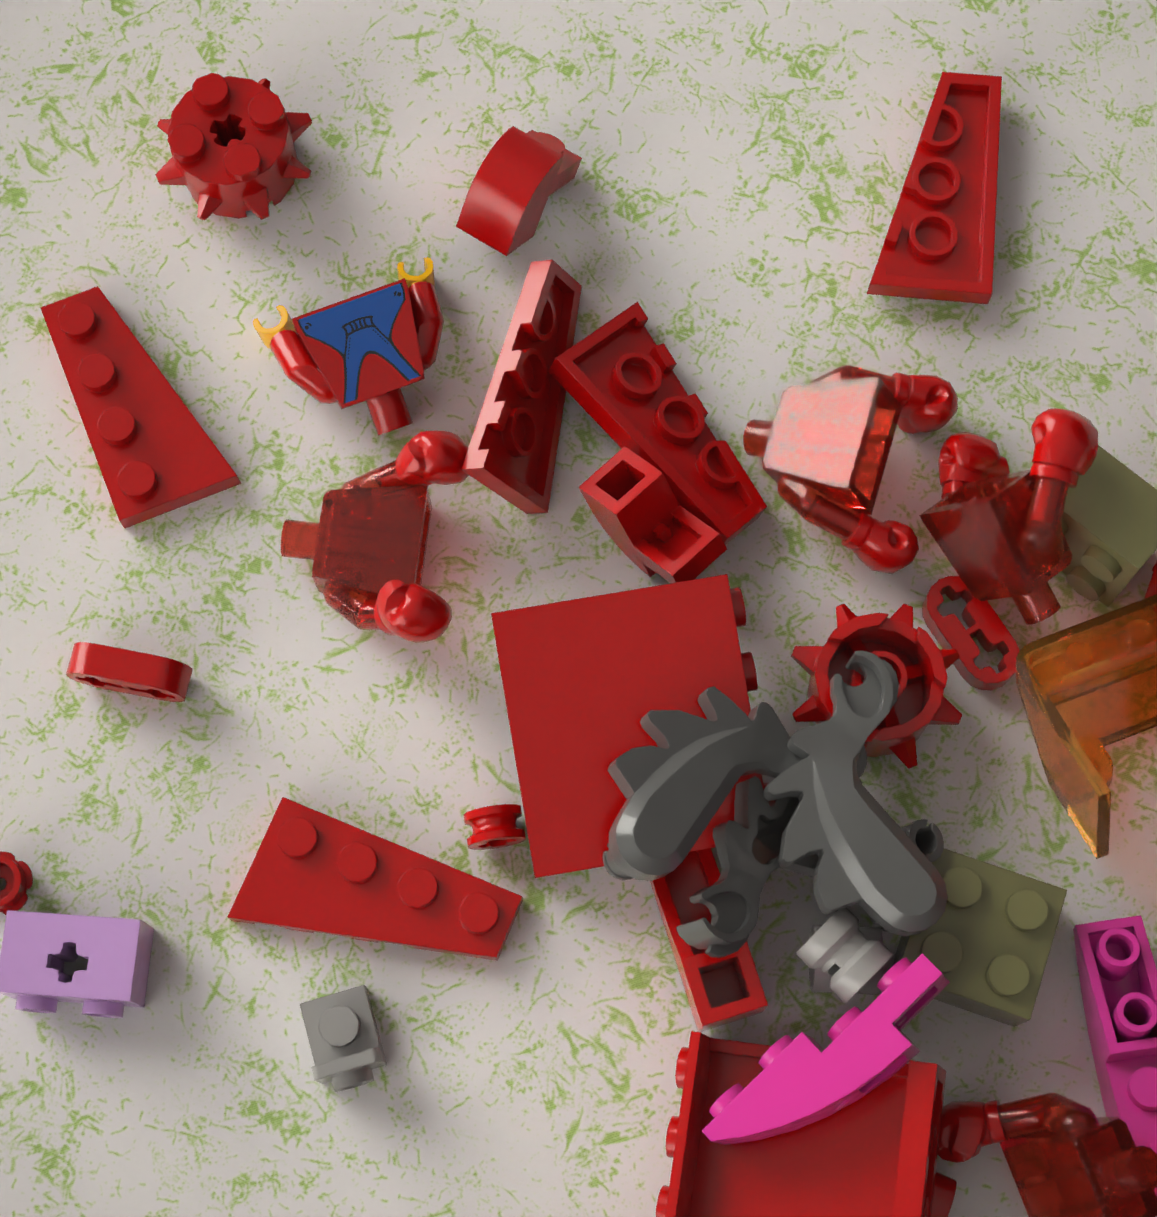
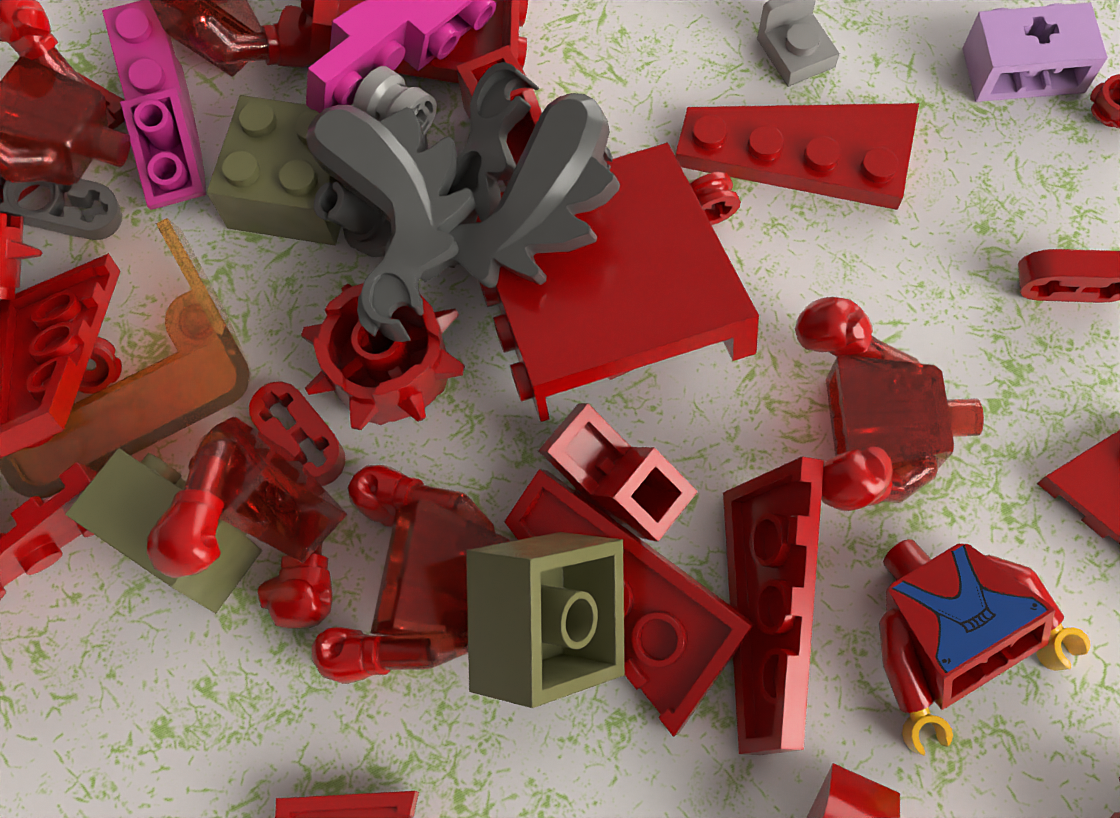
camera: 175 degrees right, 5 degrees down
(739, 381) = (545, 617): none -> olive brick

